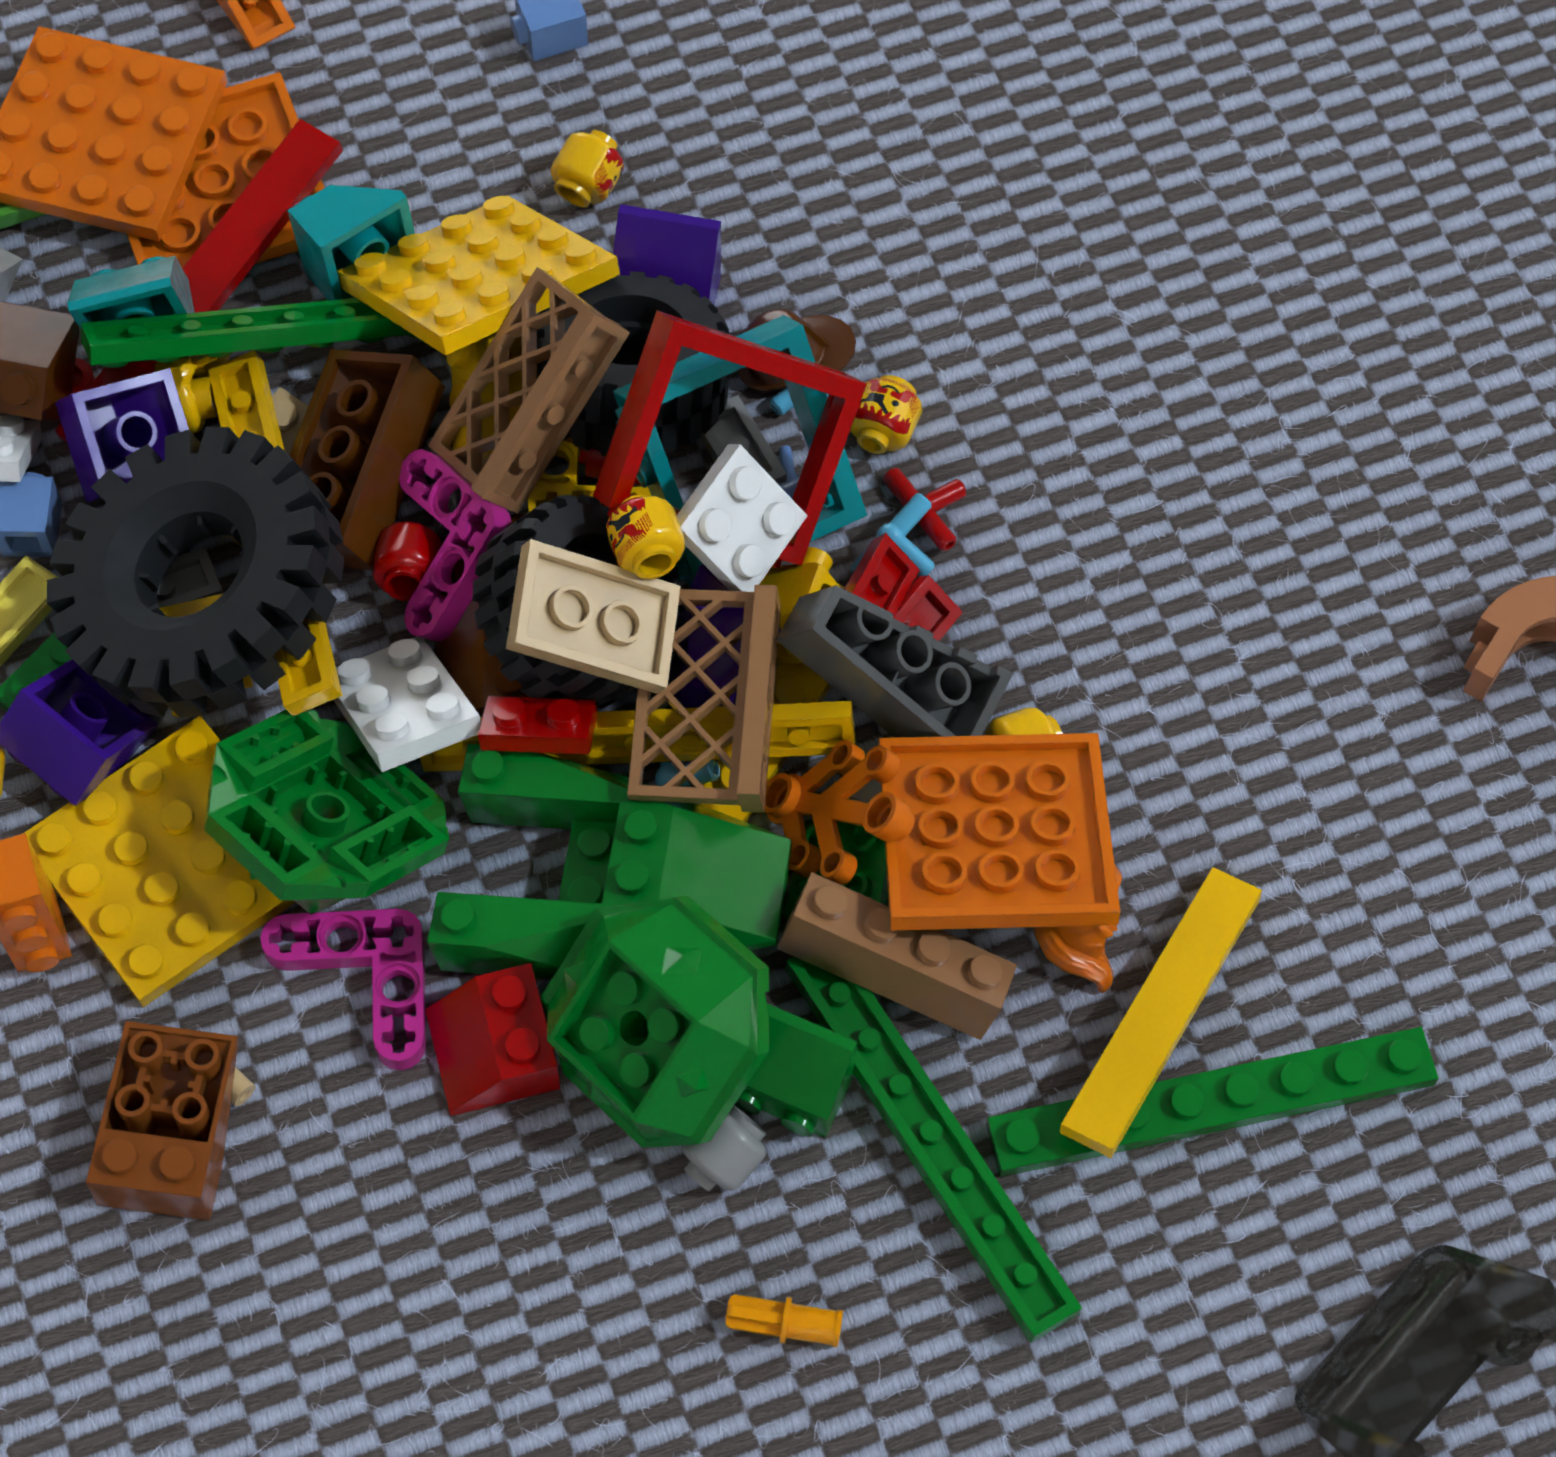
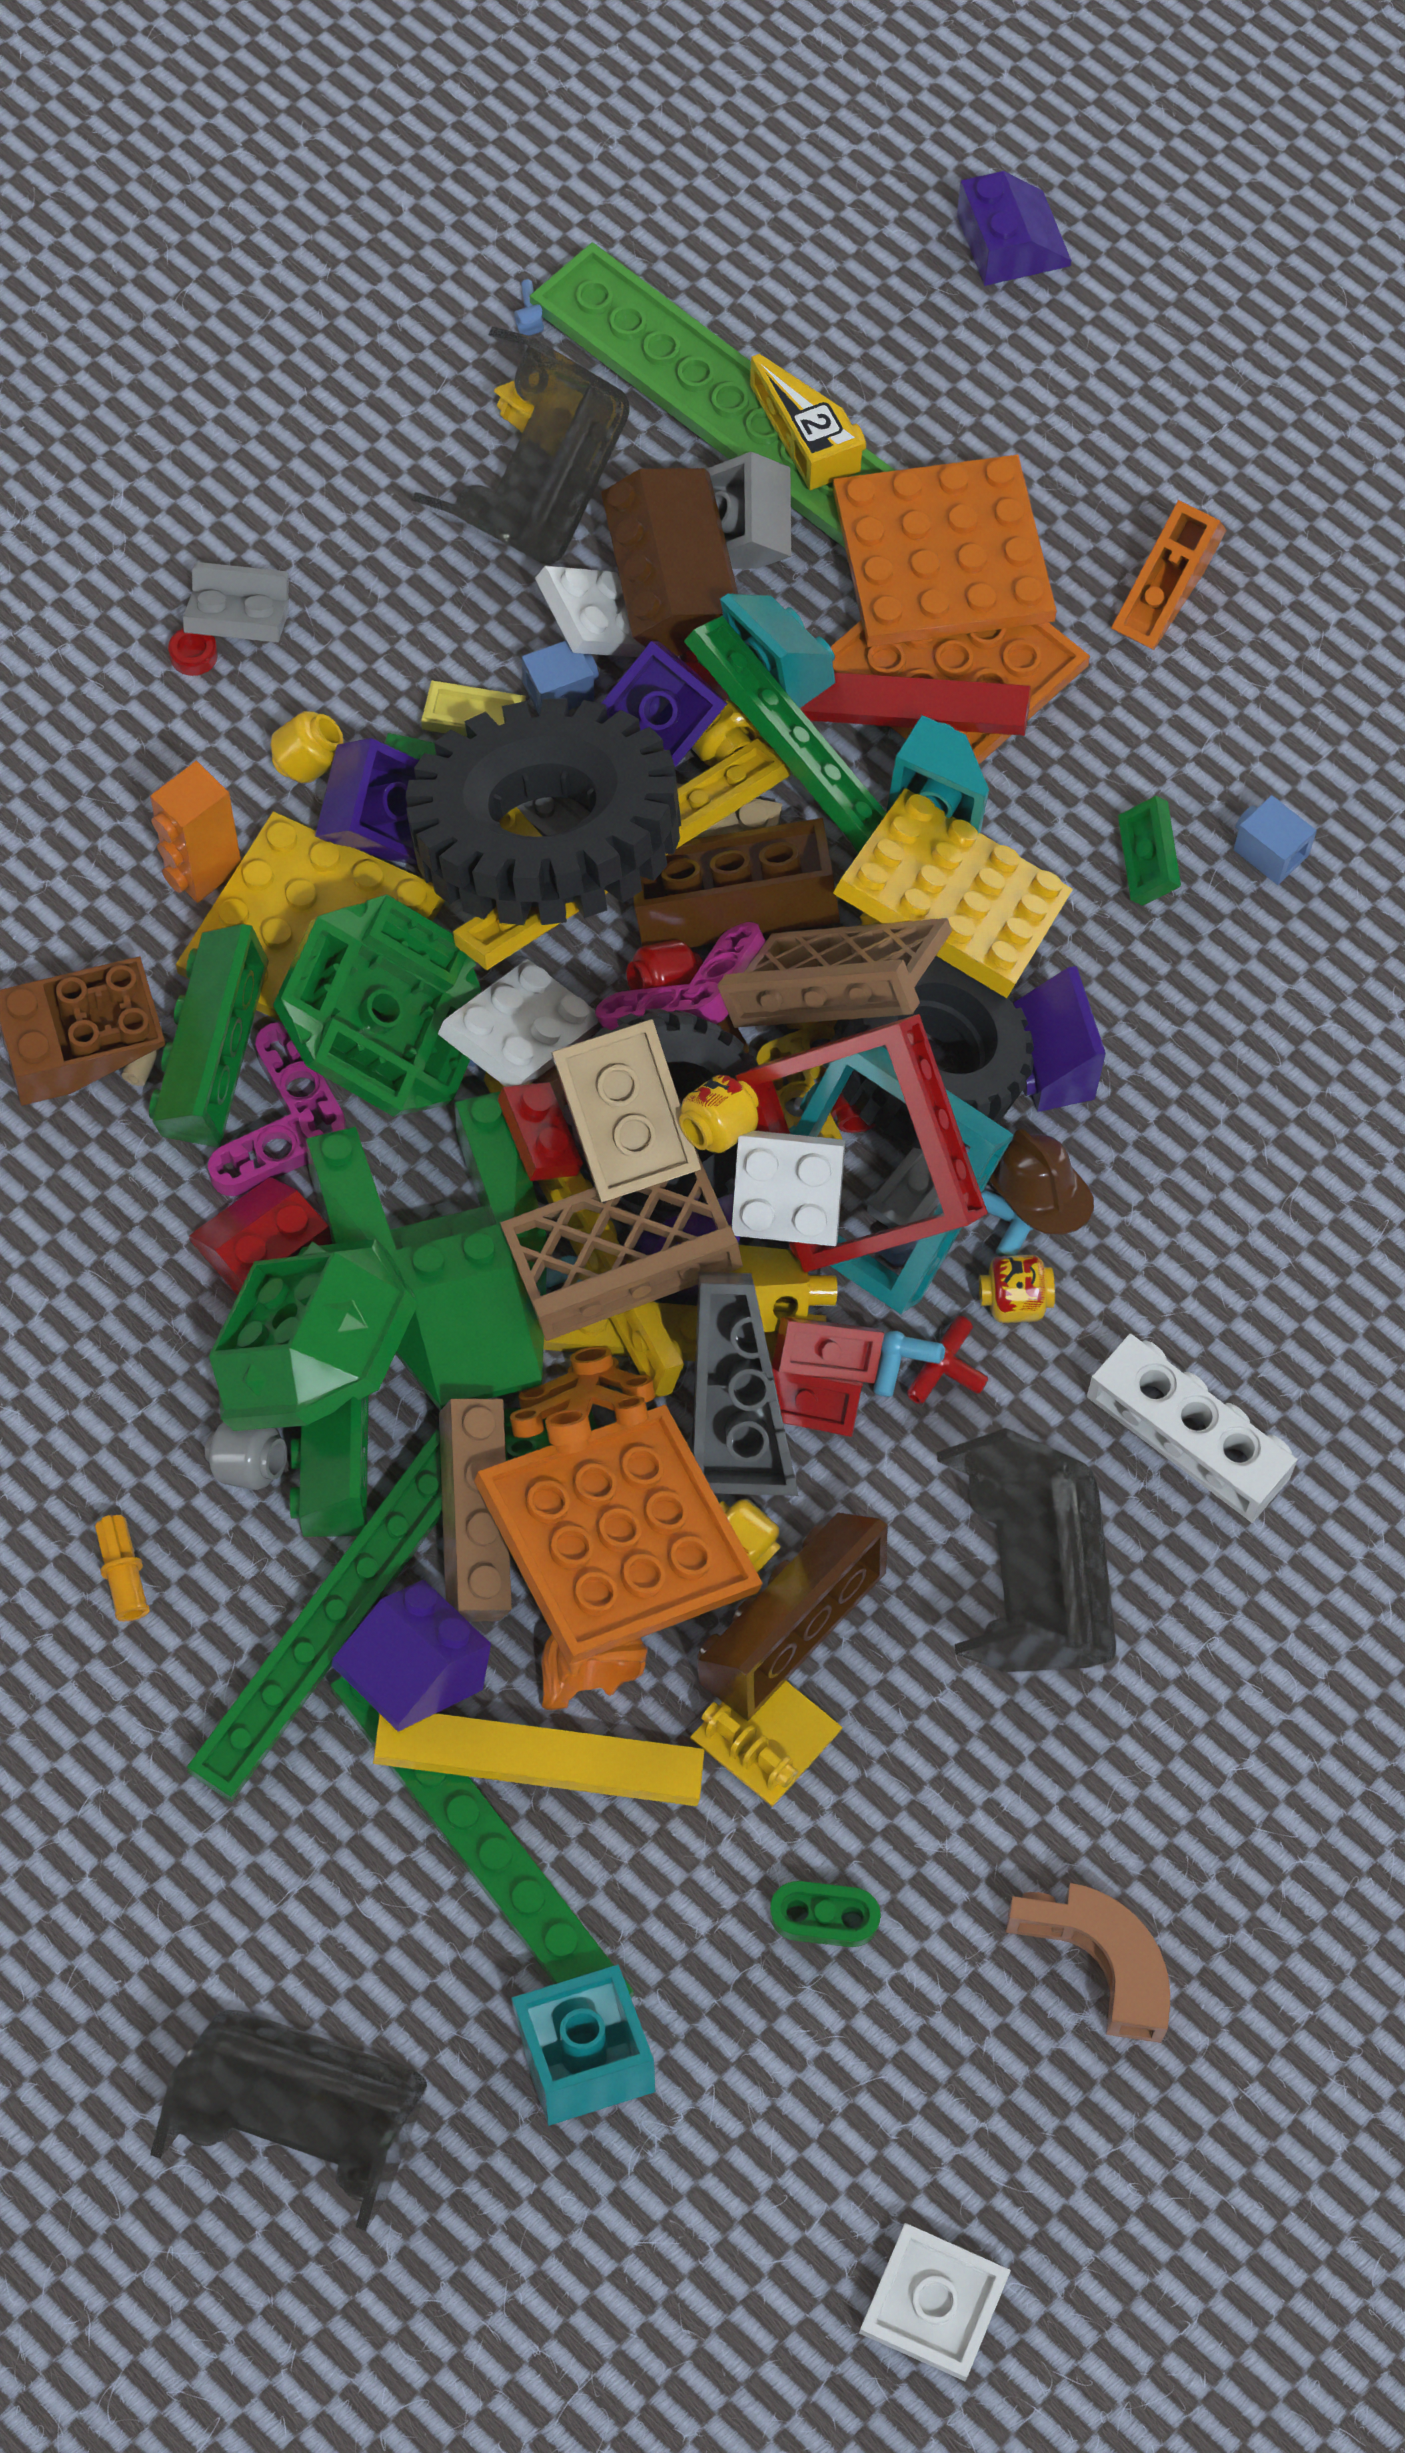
camera: 65 degrees right, 0 degrees up
(254, 990) = (210, 1036): none -> green slope
(505, 118) = (1149, 850): none -> green plate
(587, 168) = (1133, 937): yellow head -> none
(1023, 1073) = (414, 1656): none -> dark purple slope
(1024, 379) = (1244, 1485): none -> white brick
(1139, 743) = (794, 1612): none -> reddish brown slope
(1160, 512) = (1048, 1555): none -> clear smoke windscreen
(1217, 810) = (771, 1746): none -> yellow hinge
(1411, 837) = (825, 1909): none -> green plate
(1465, 1085) = (584, 2045): none -> teal slope

